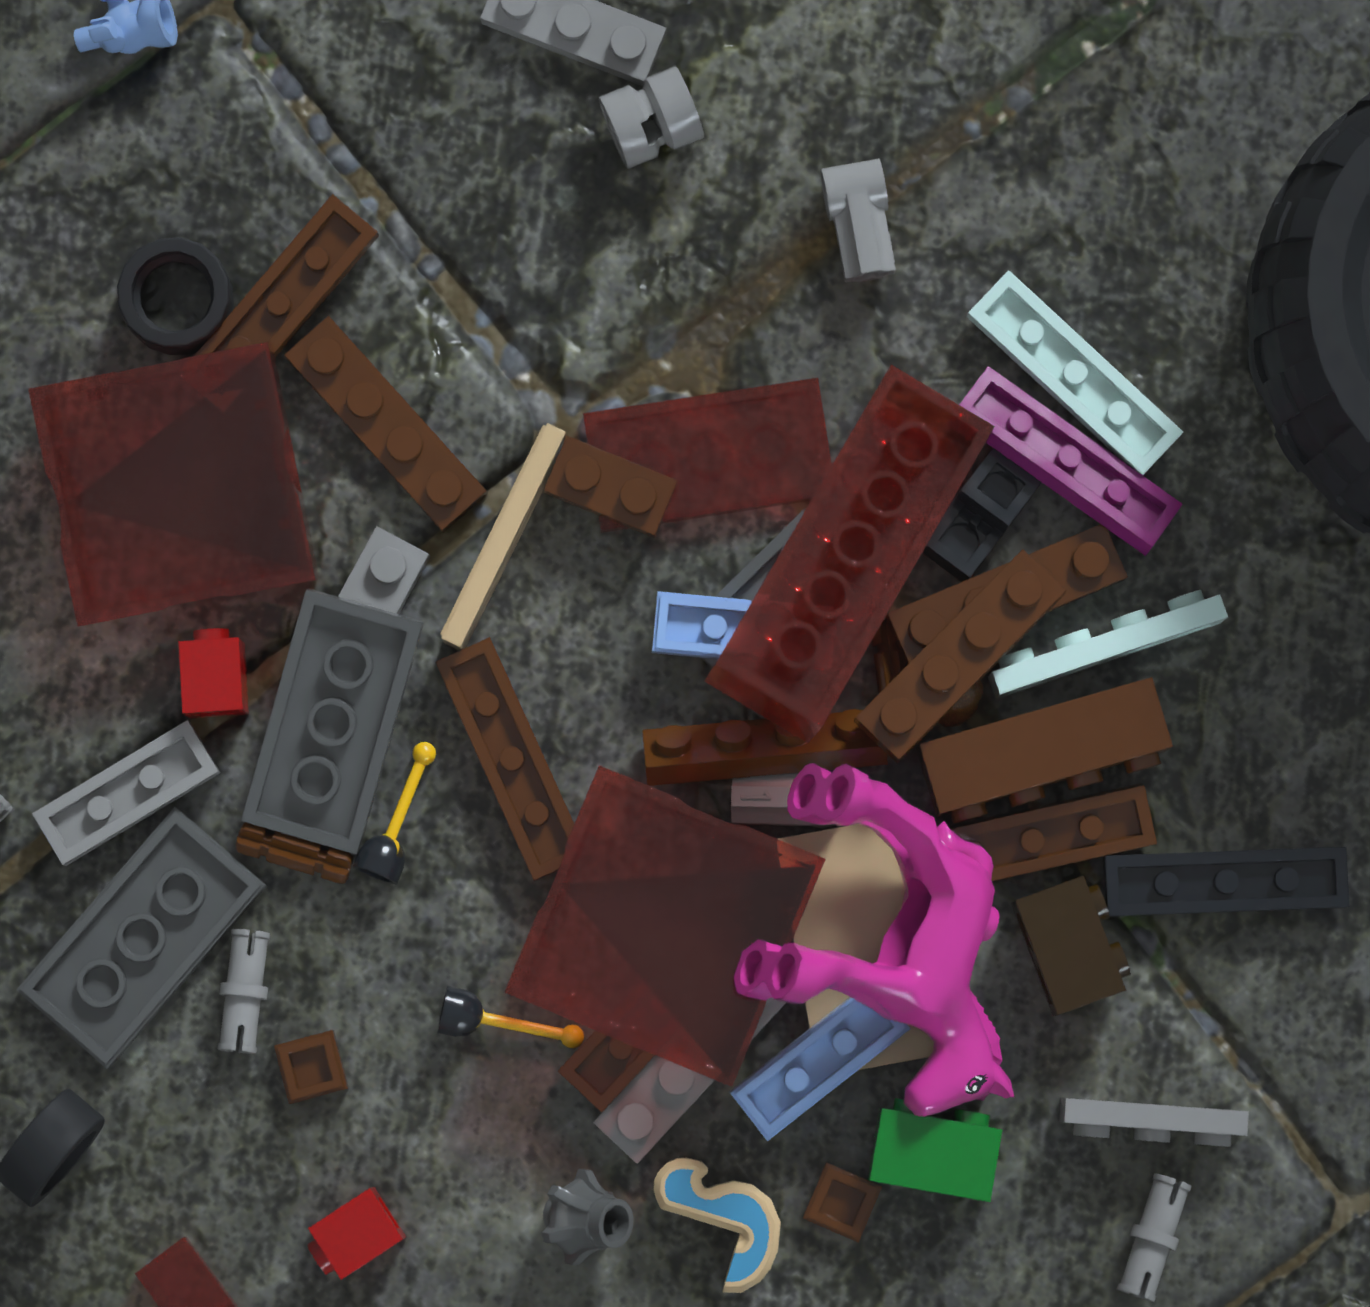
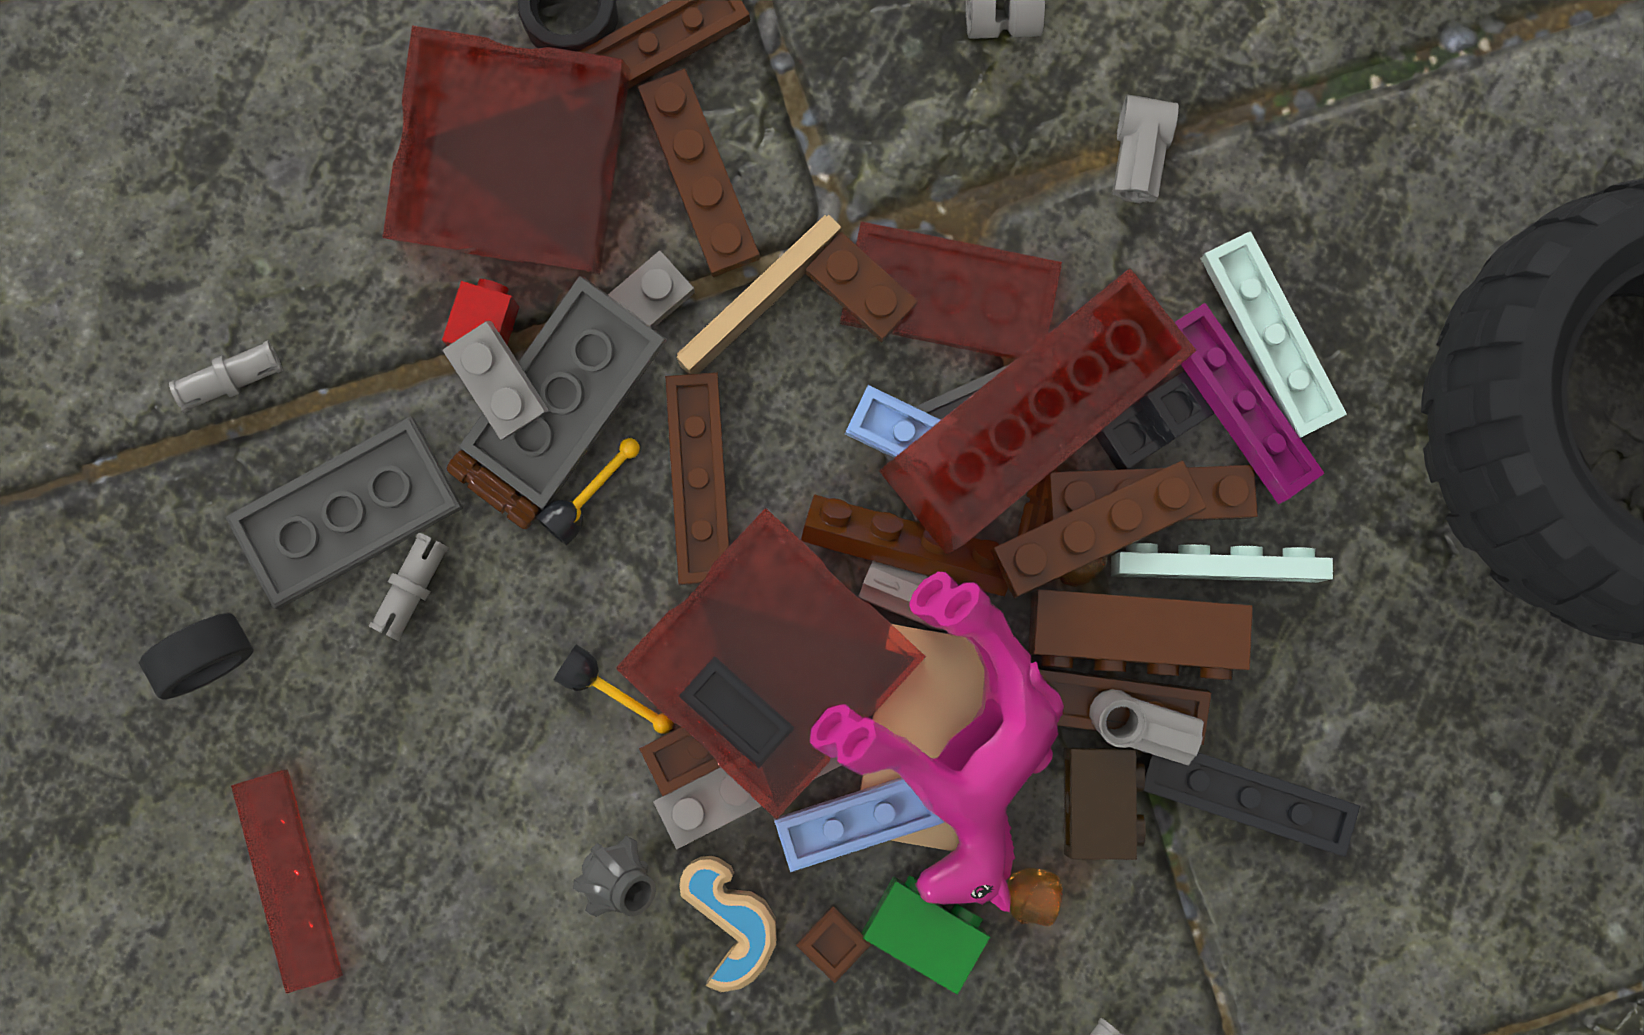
camera: 15 degrees right, 0 degrees up
(126, 793) = (374, 390): light grey plate -> none
(257, 735) = (495, 380): none -> light grey plate
(311, 1067) = (441, 669): reddish brown tile -> none
(354, 1234) = (422, 821): red brick -> none
(647, 992) = (736, 712): none -> black tile
(1036, 1071) = (1035, 896): none -> clear orange piece
(1091, 846) = (1148, 727): none -> light grey piece
(1153, 1121) = (1118, 975): light grey plate -> none

